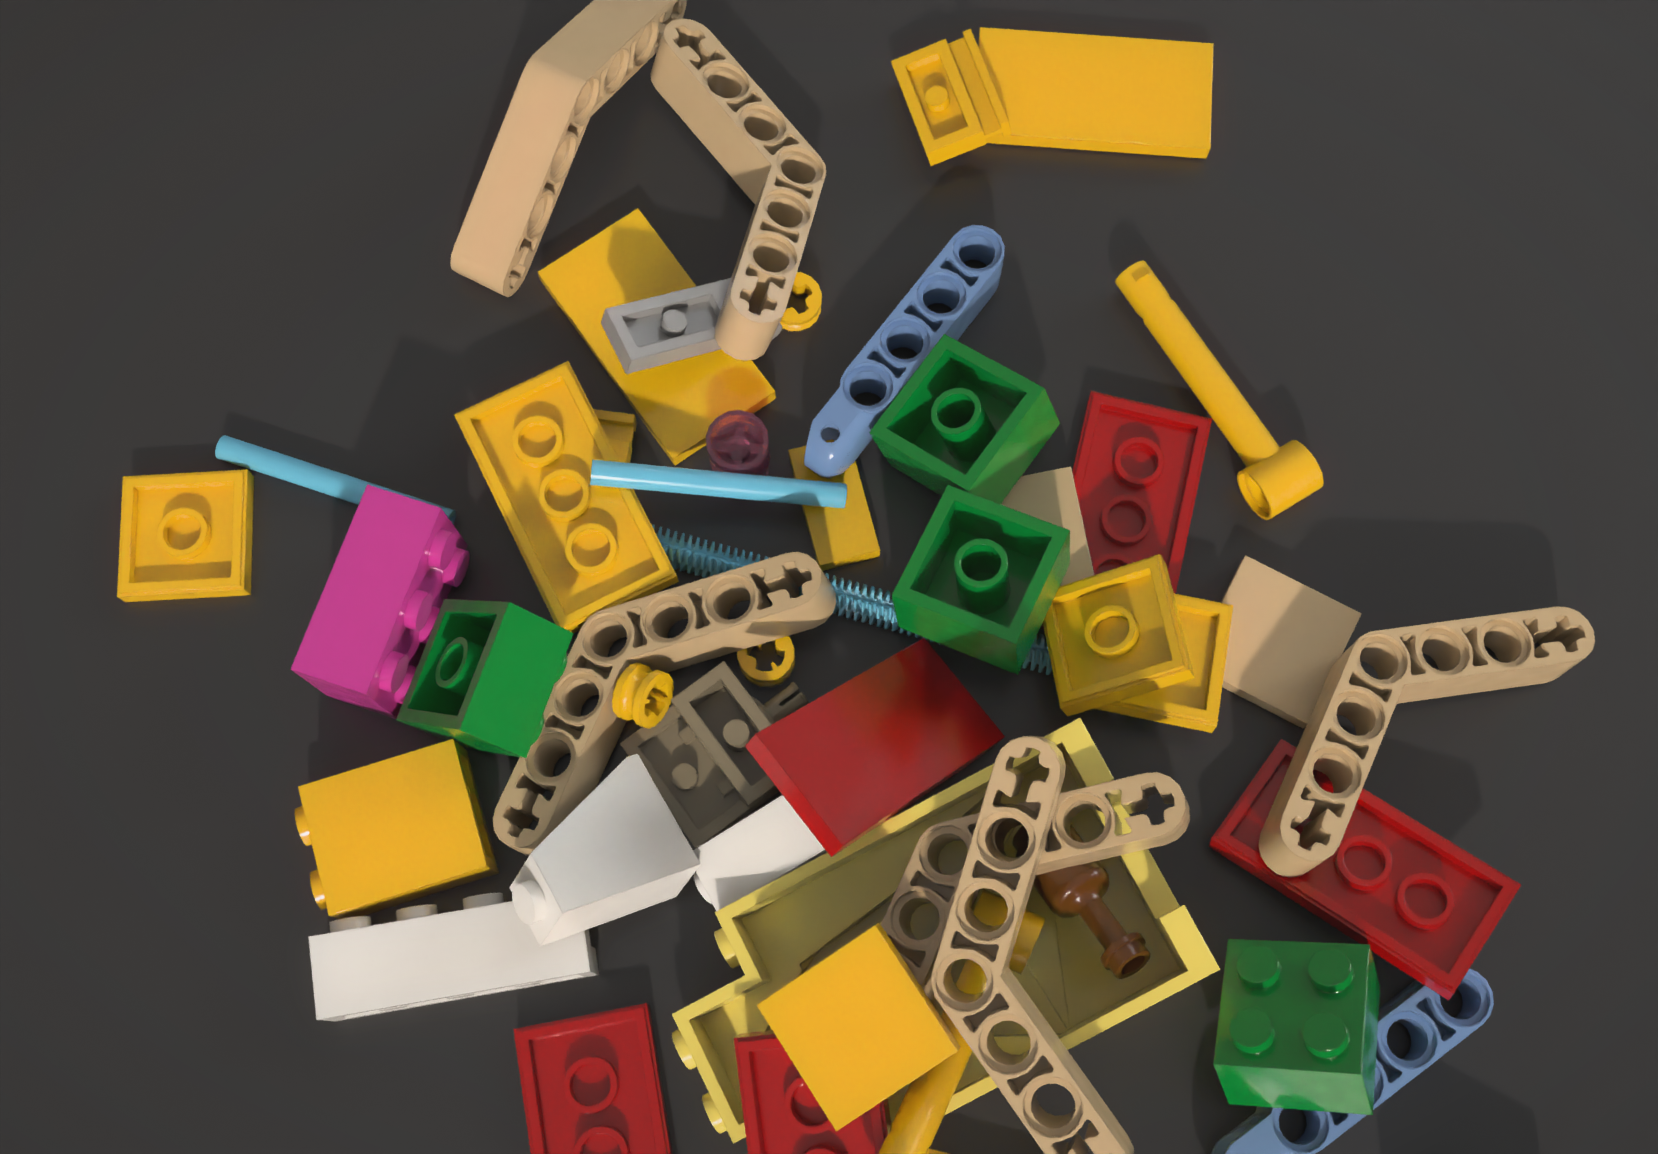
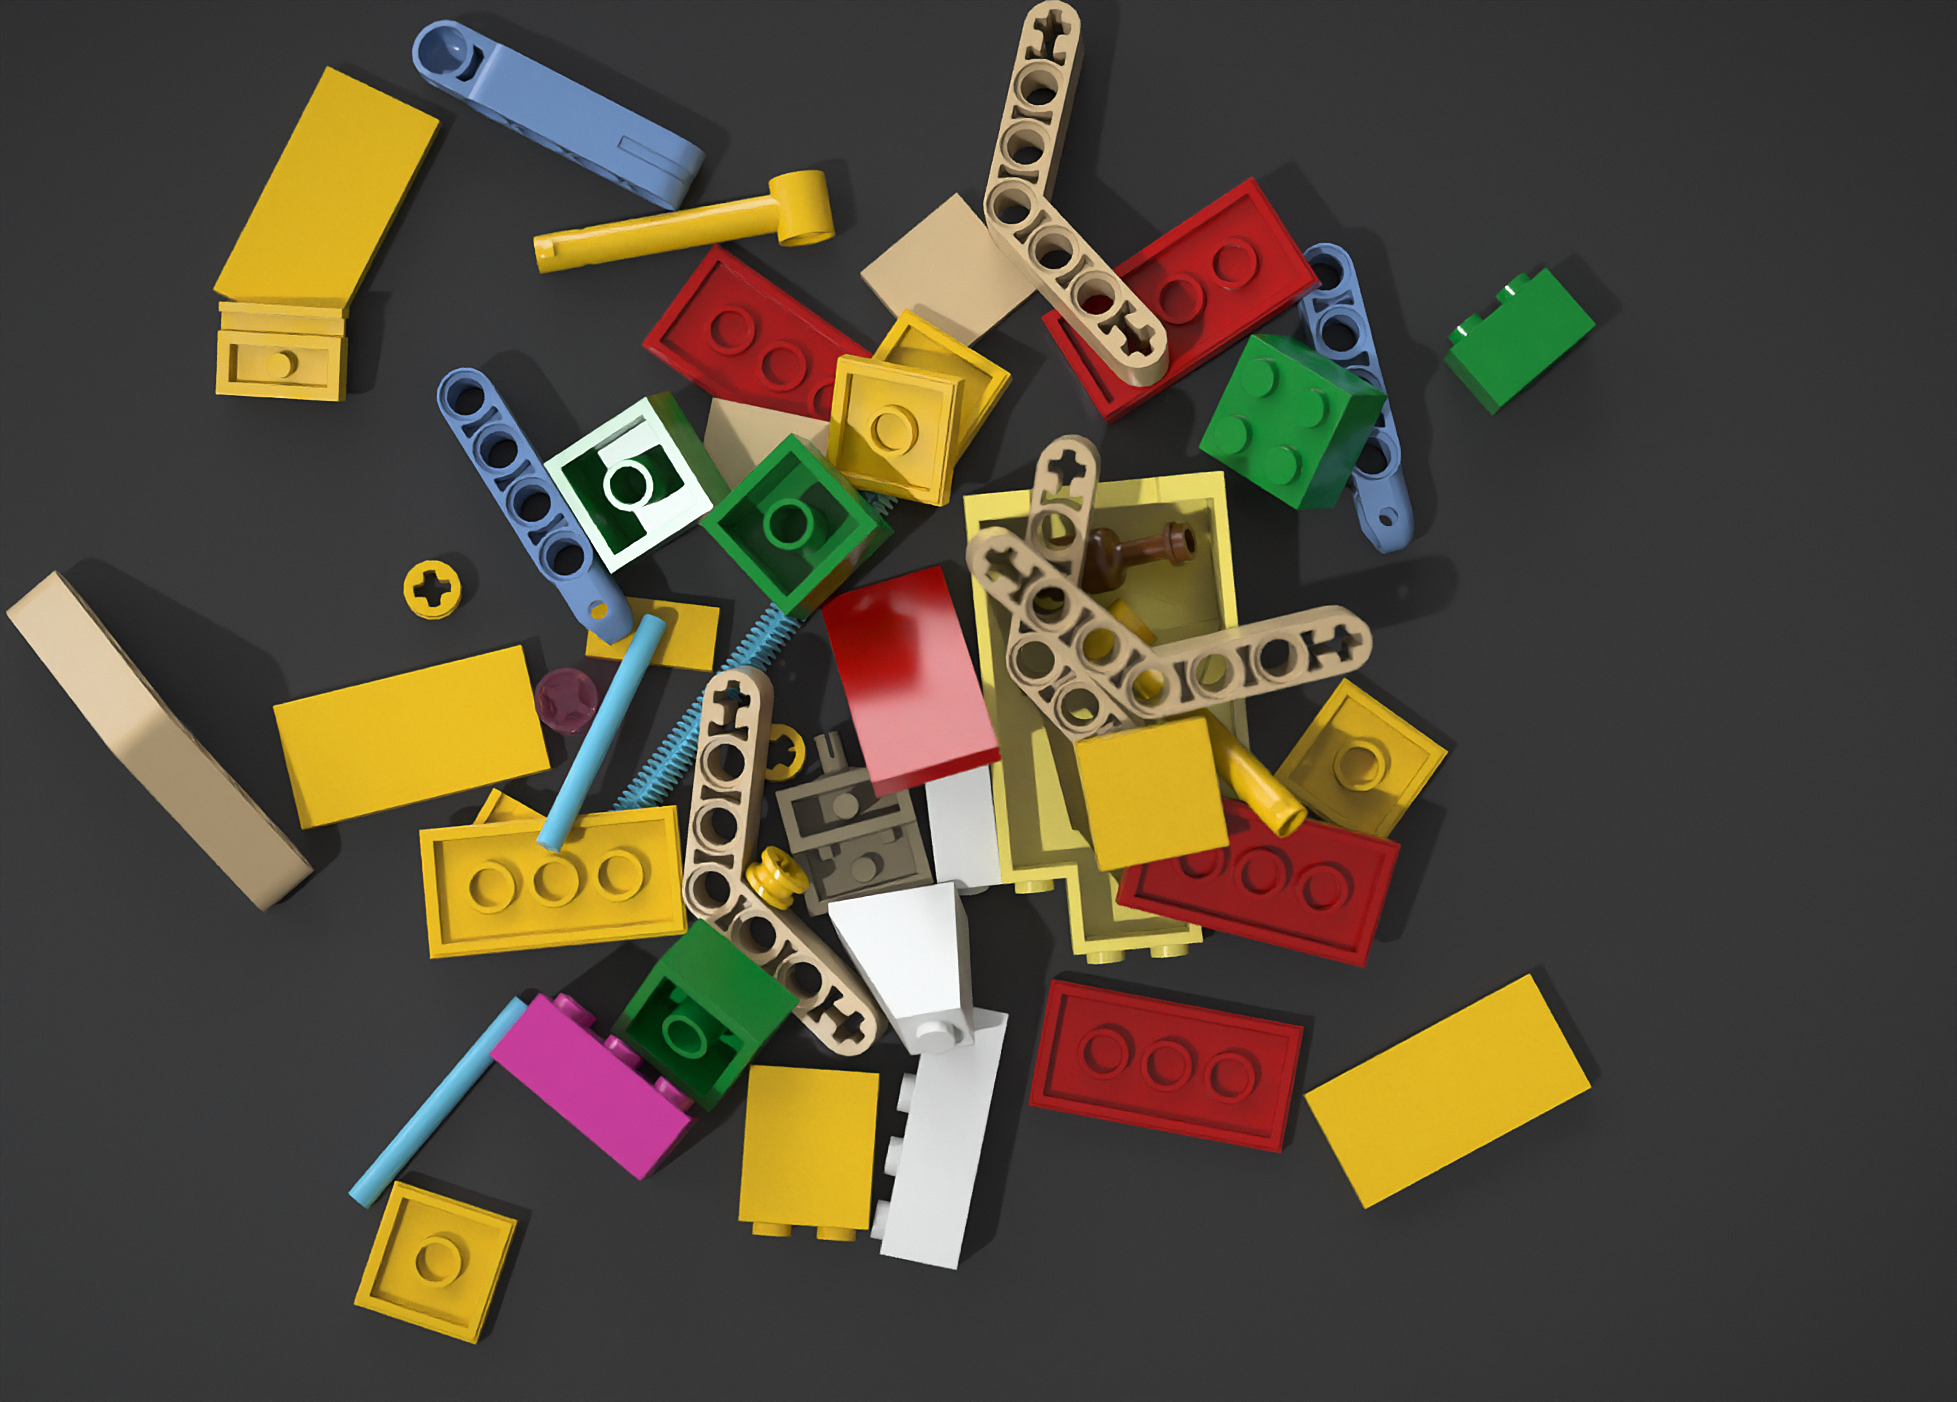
camera: 70 degrees left, 10 degrees up
(666, 326) = (429, 699): light grey plate -> none
(763, 158) = (150, 594): tan beam -> none
(1264, 243) = (558, 113): none -> medium blue piece

